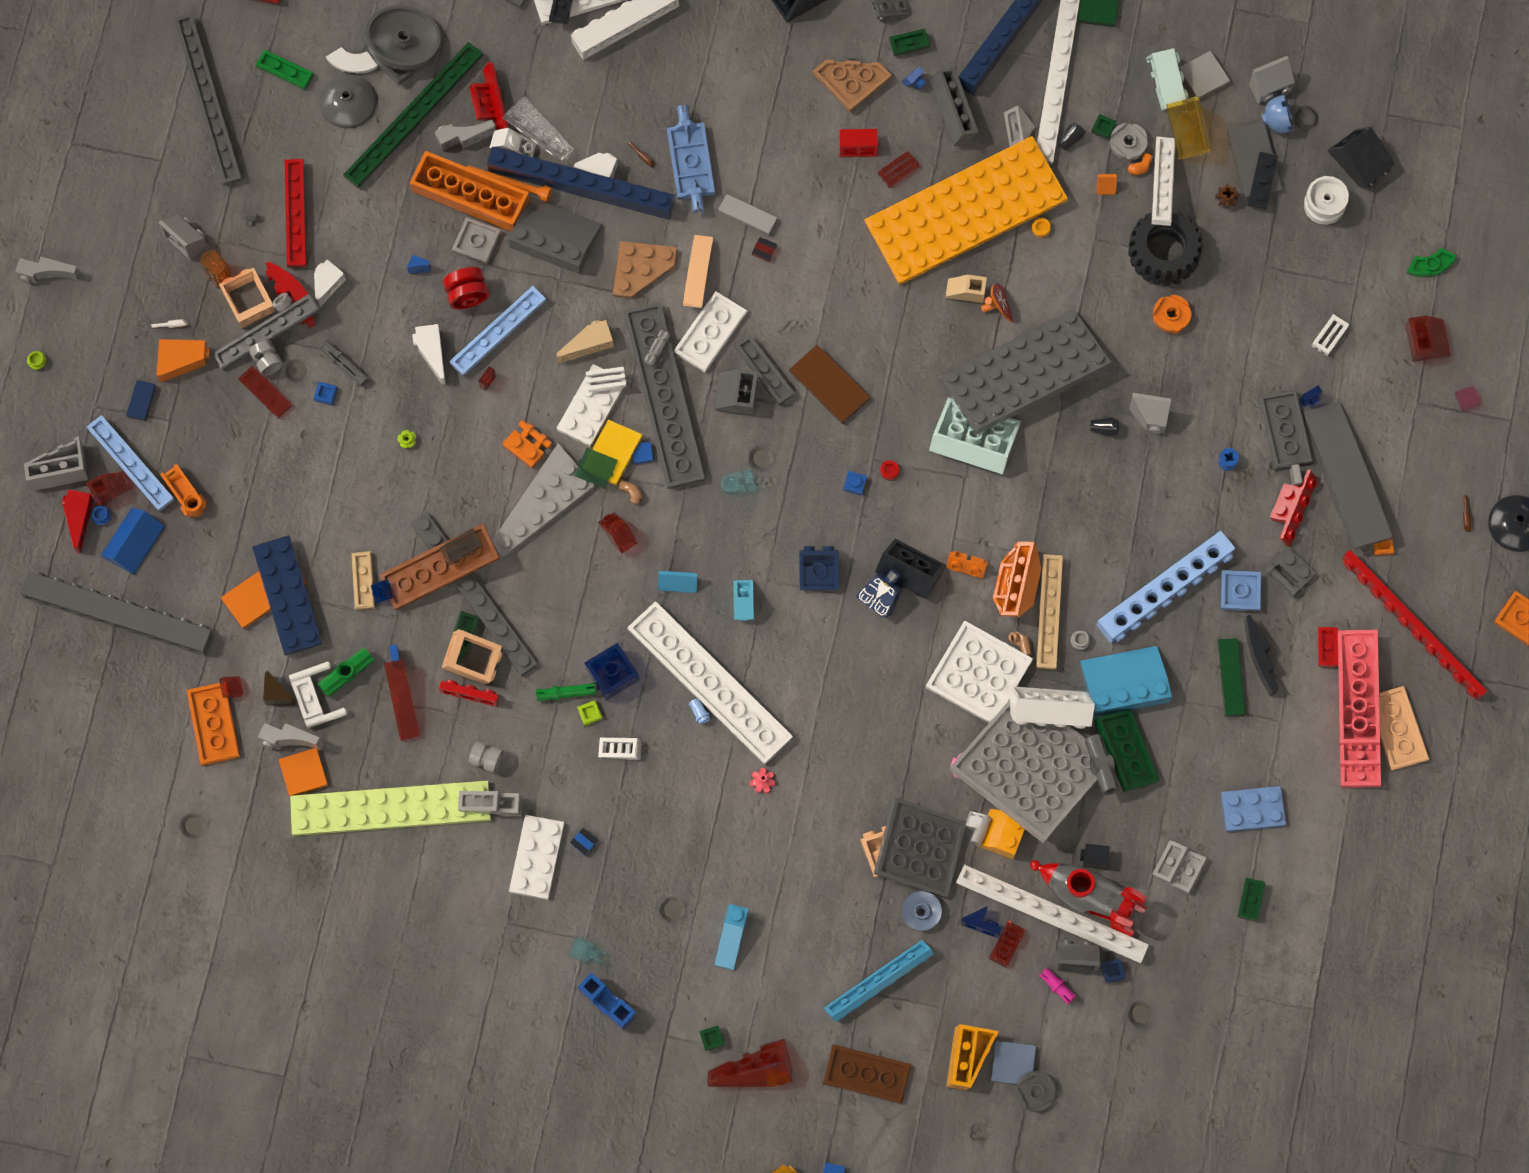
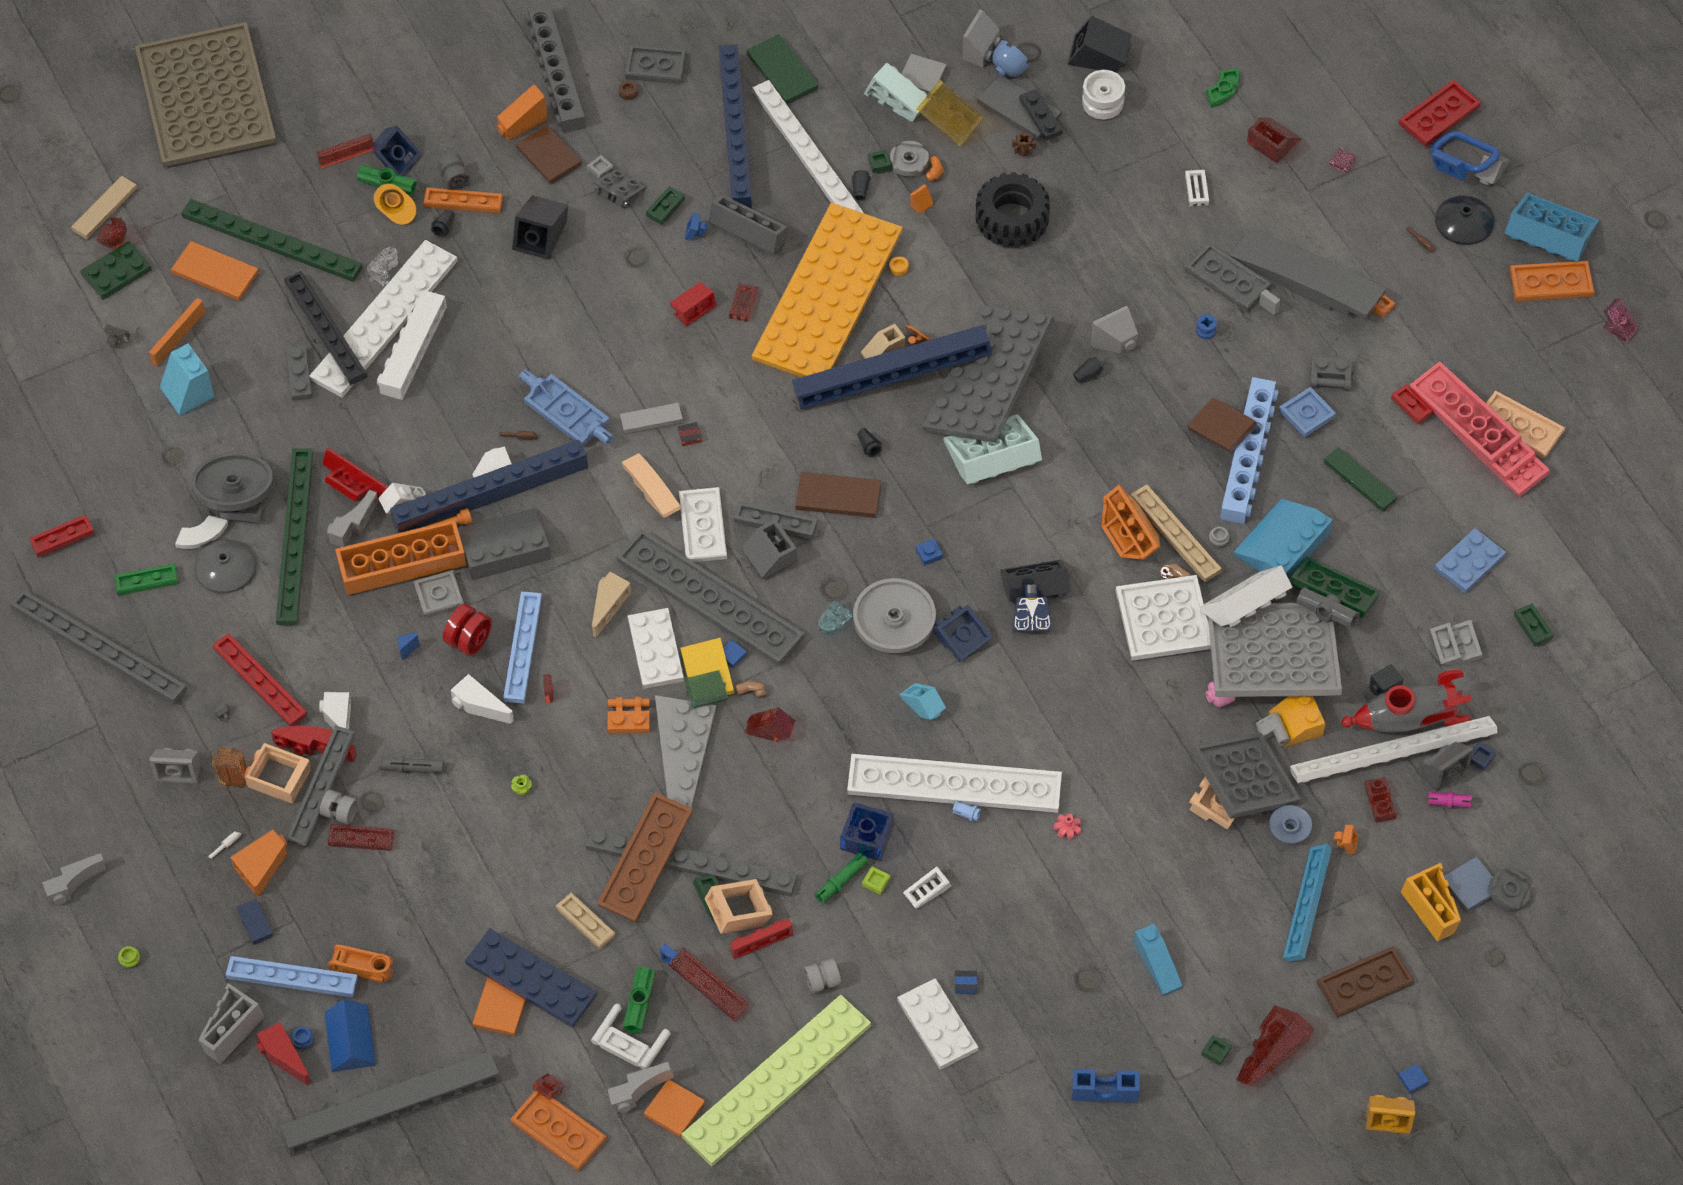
camera: 40 degrees left, 15 degrees down
(109, 486) = (290, 1008): clear red slope -> none
(275, 693) = (592, 1061): dark brown slope -> none
(282, 302) = (315, 751): light grey tile -> none
(325, 393) = (415, 800): blue tile -> none
(381, 591) = (611, 914): clear blue plate -> none
(461, 546) = (653, 822): clear smoke plate -> none
(490, 802) = (861, 1006): light grey slope -> none
(538, 129) = (410, 472): clear wing -> none
(583, 951) = (1046, 1065): clear light blue plate -> none
(603, 372) = (652, 607): white tile -> none
(640, 267) = (598, 517): medium nougat plate -> none
(657, 347) = (672, 563): light grey axle -> none
(677, 581) = (854, 726): dark azure slope -> none
(780, 516) = (894, 615): none -> light grey dish
(851, 80) = (644, 264): medium nougat plate -> none
(887, 361) = (870, 444): none -> black cone
(889, 470) = (947, 523): red tile -> none
(953, 956) = (1347, 839): none -> orange tile
(955, 311) = (892, 367): none -> dark blue brick
(958, 562) = (1079, 546): orange hinge -> none
(976, 922) = (1343, 800): clear blue slope -> none
(1017, 125) = (809, 206): light grey slope -> none
(1161, 552) = (1222, 425): none -> reddish brown tile
(1163, 181) = (967, 162): white tile -> none
(1174, 324) = (1061, 265): orange plate -> none
(1258, 648) = (1360, 441): black slope -> none
(1292, 505) = (1285, 324): red bracket -> none
(1312, 396) = (1226, 238): clear blue plate -> none
(1418, 630) = (1461, 342): red plate -> none

